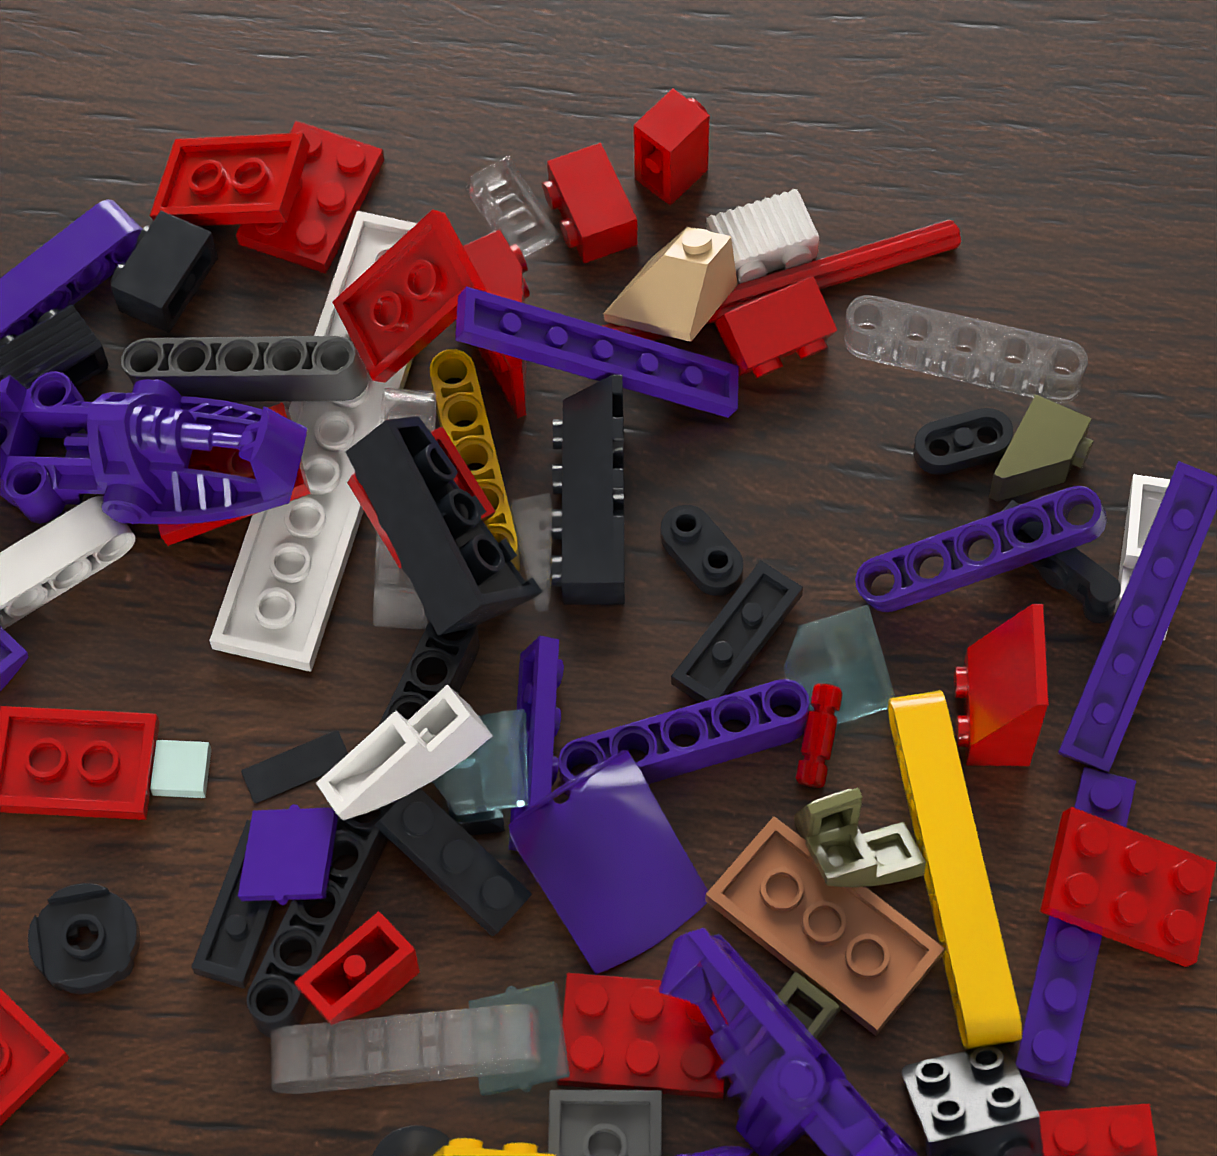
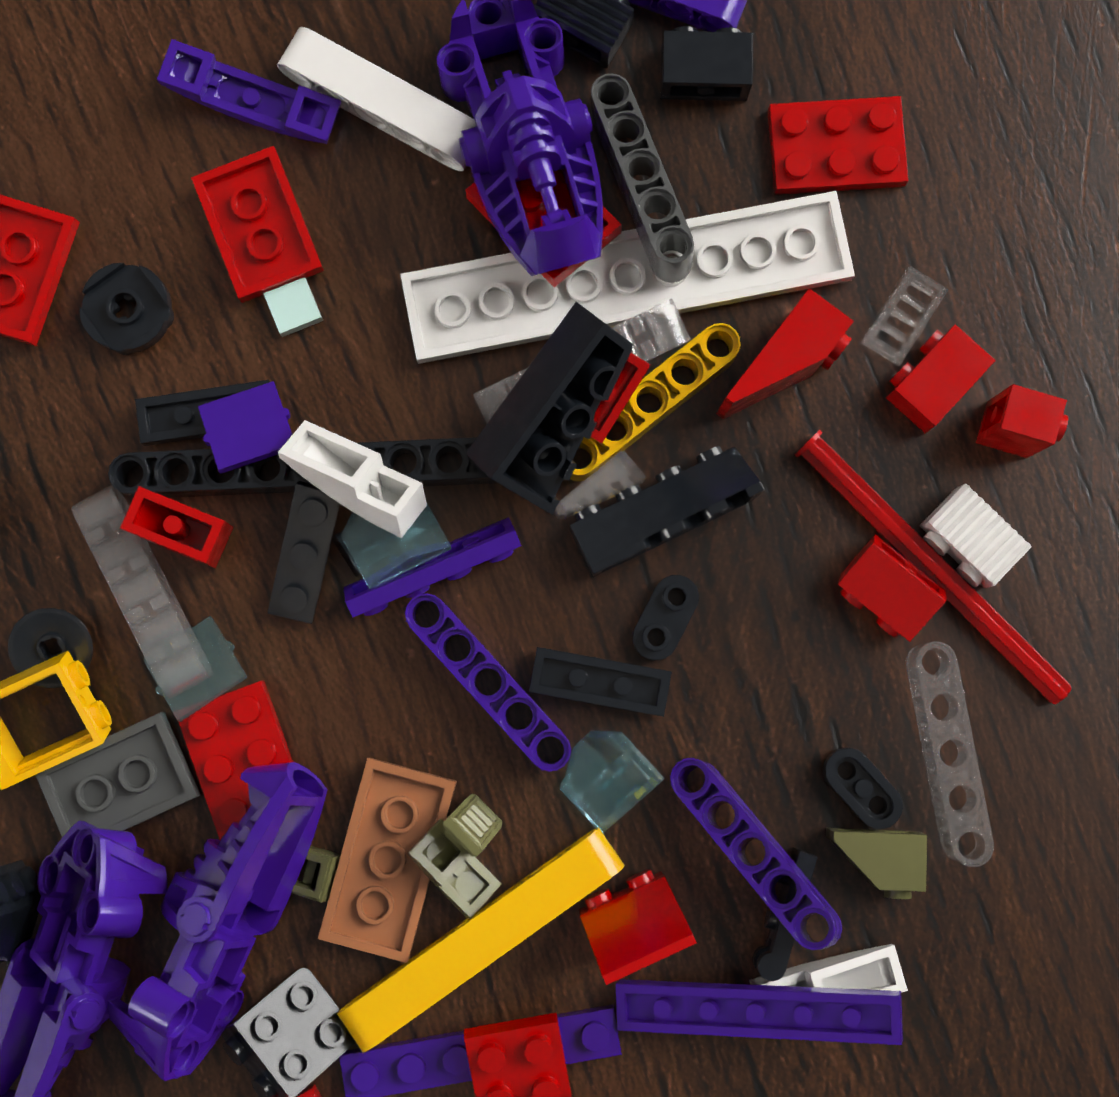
camera: 60 degrees right, 20 degrees up
(232, 179) = (812, 74): red plate -> none
(294, 766) = (339, 392): black sticker -> none
(407, 296) = (760, 277): red plate -> none
(596, 352) = (779, 454): dark purple plate -> none
(609, 862) = (355, 672): dark purple piece -> none
(678, 286) = (886, 489): tan slope -> none
(819, 735) = (542, 786): red axle -> none

